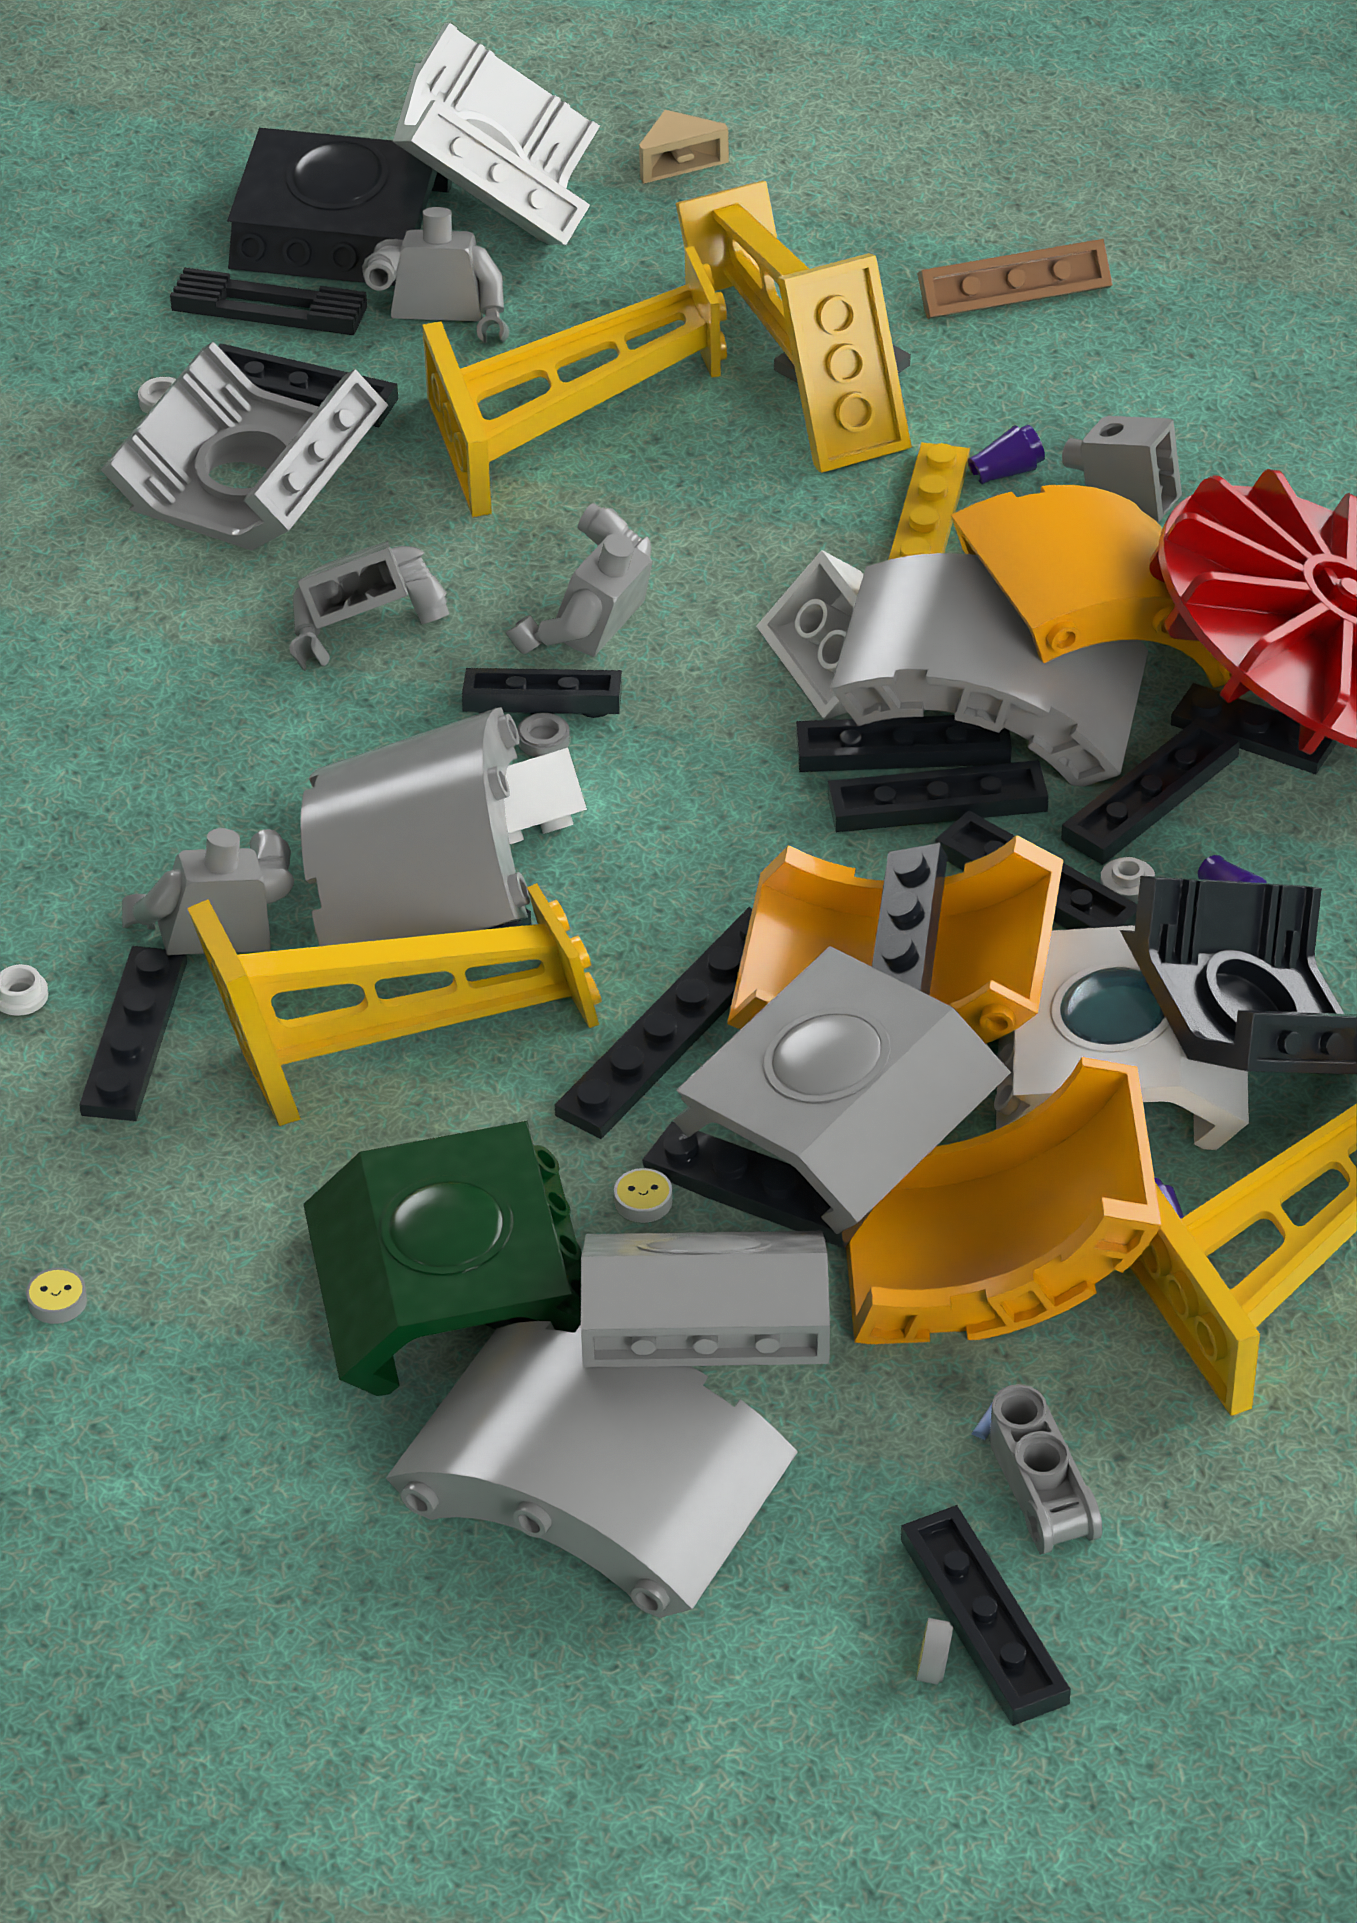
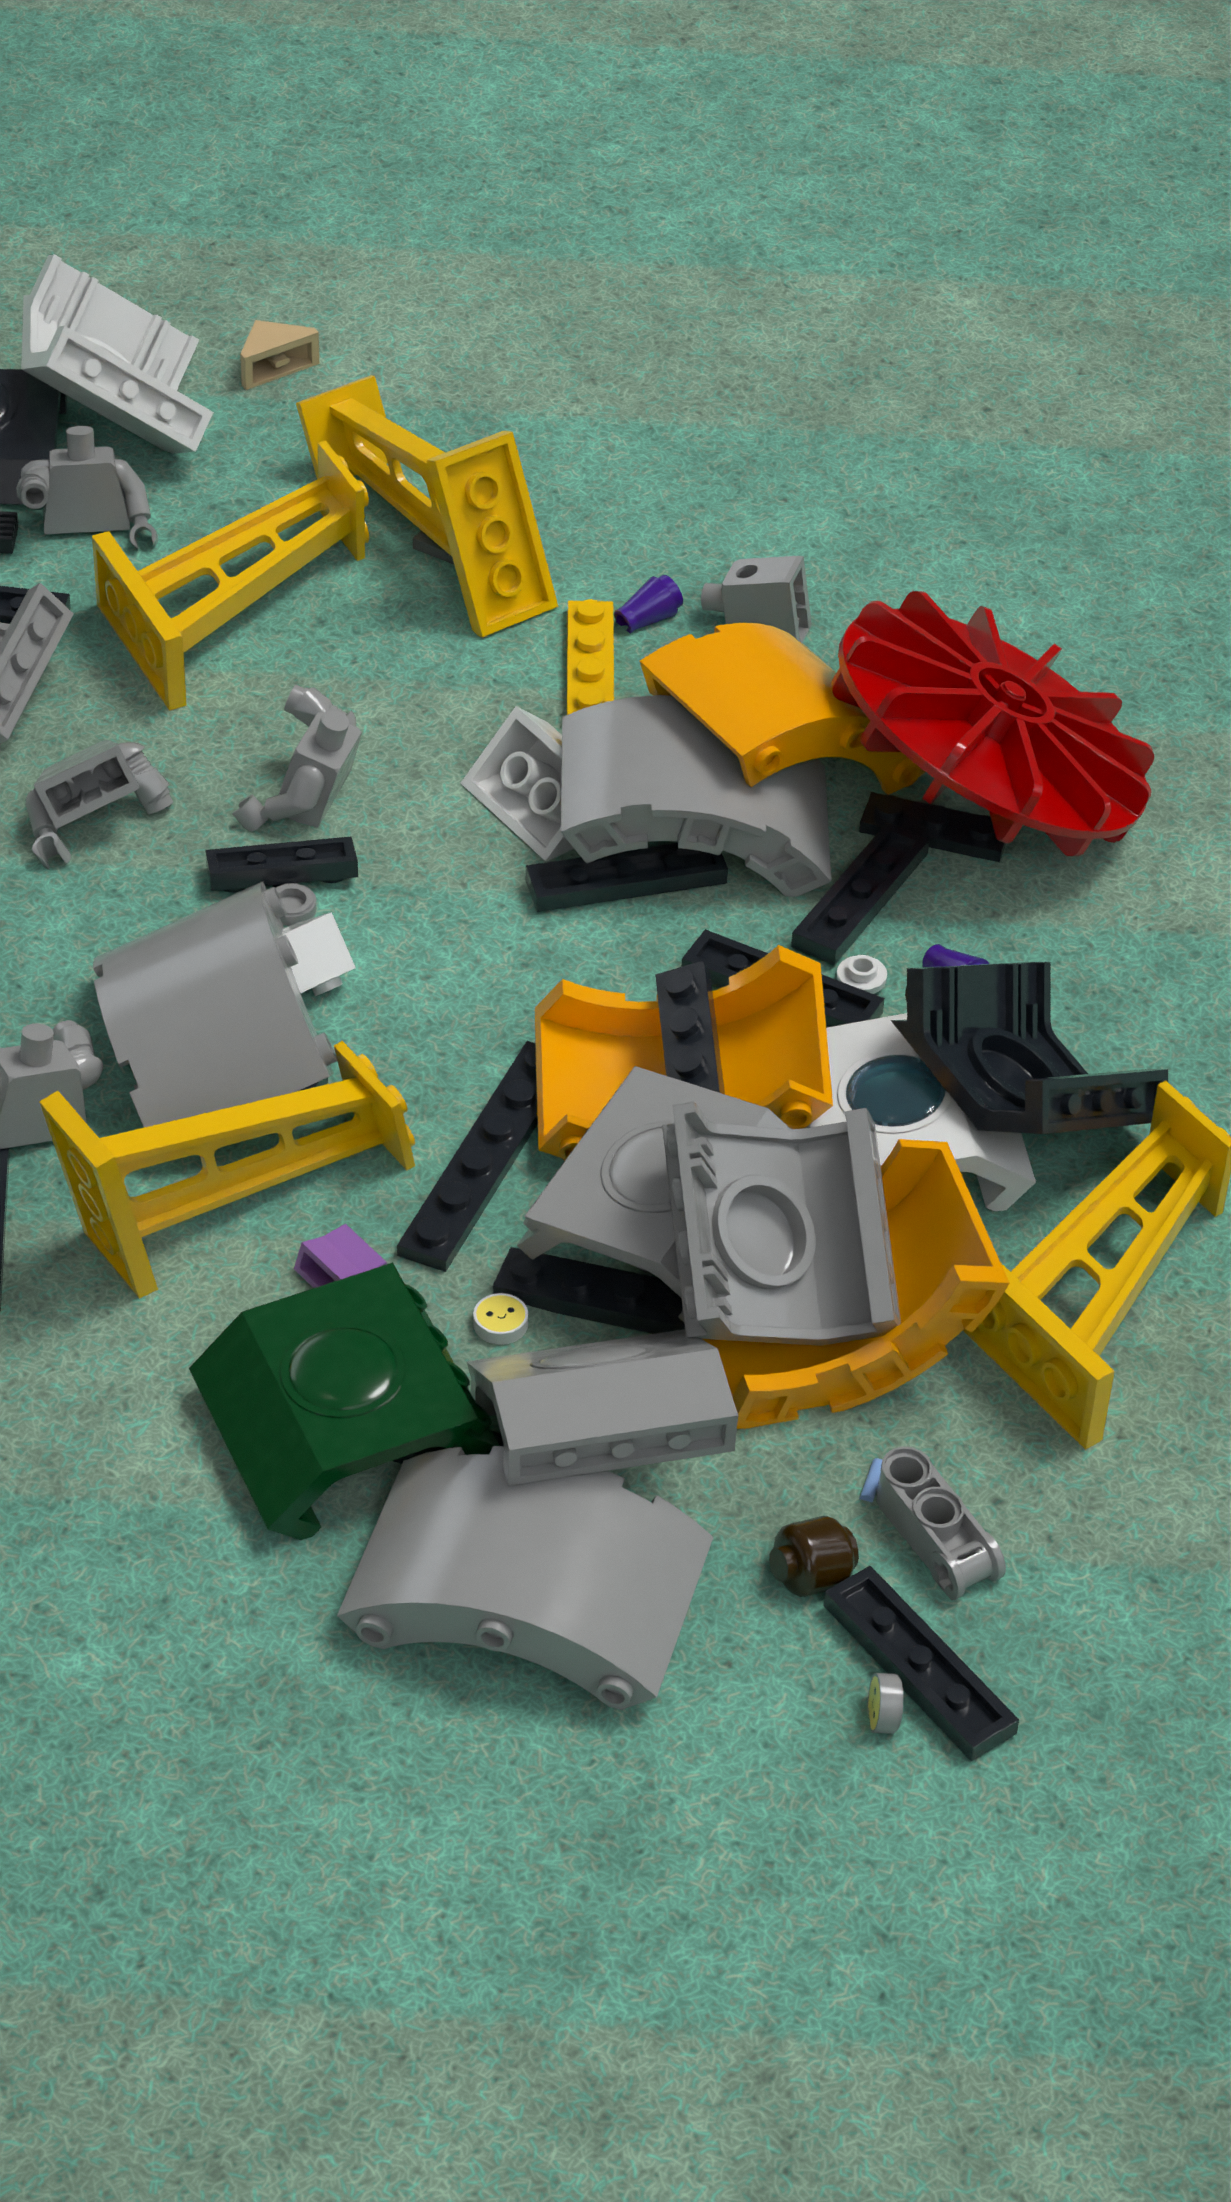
camera: 15 degrees left, 0 degrees up
(487, 1106) = (335, 1257): none -> medium lavender piece
(900, 1485) = (813, 1555): none -> dark brown head
(935, 1137) = (780, 1230): none -> light grey panel
(937, 795) = (670, 919): black plate -> none
(1014, 278) = (612, 445): medium nougat plate -> none

